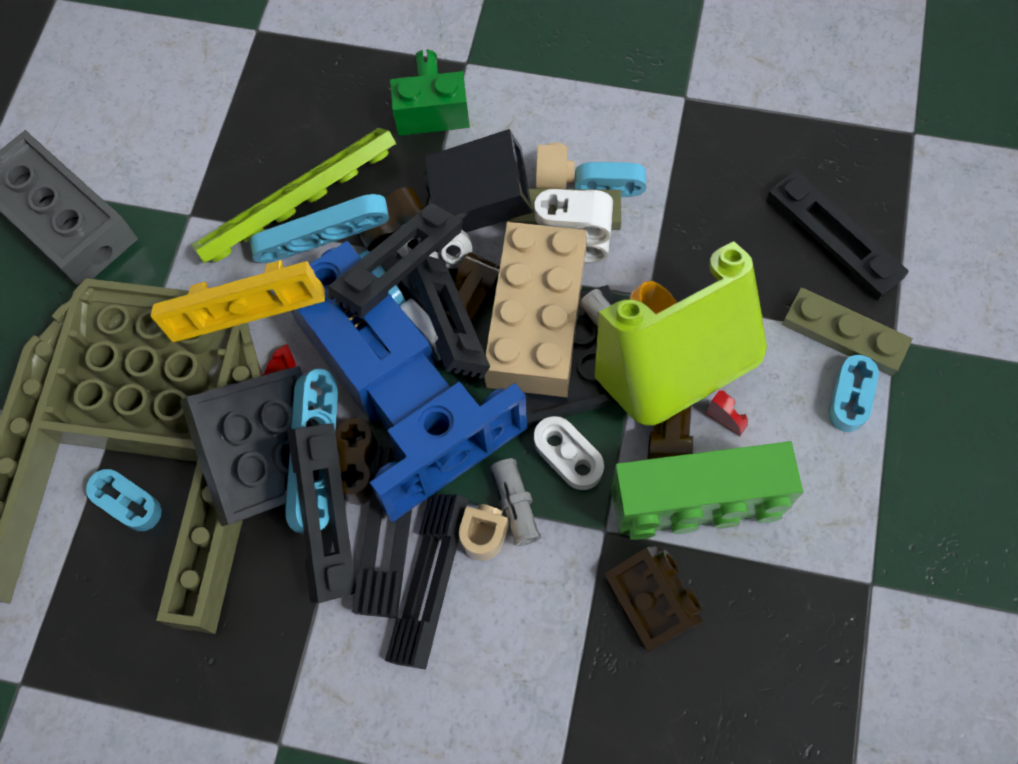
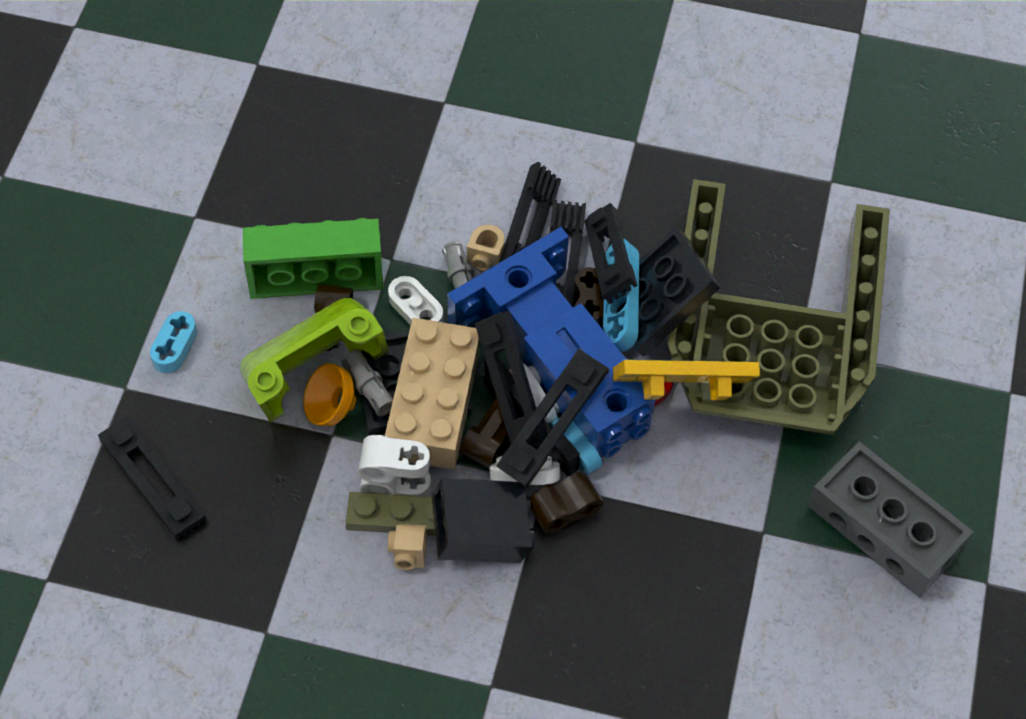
camera: 175 degrees right, 10 degrees down
(129, 493) = (776, 288): medium azure beam -> none
(281, 203) = (658, 533): lime plate -> none
(319, 228) = (630, 480): medium azure beam -> none
(430, 99) = (529, 620): green brick -> none
(621, 176) = (354, 532): medium azure beam -> none
(654, 596) = (357, 198): dark brown bracket -> none
(722, 411) = (279, 324): red tile -> none
(847, 331) = (166, 392): olive plate -> none

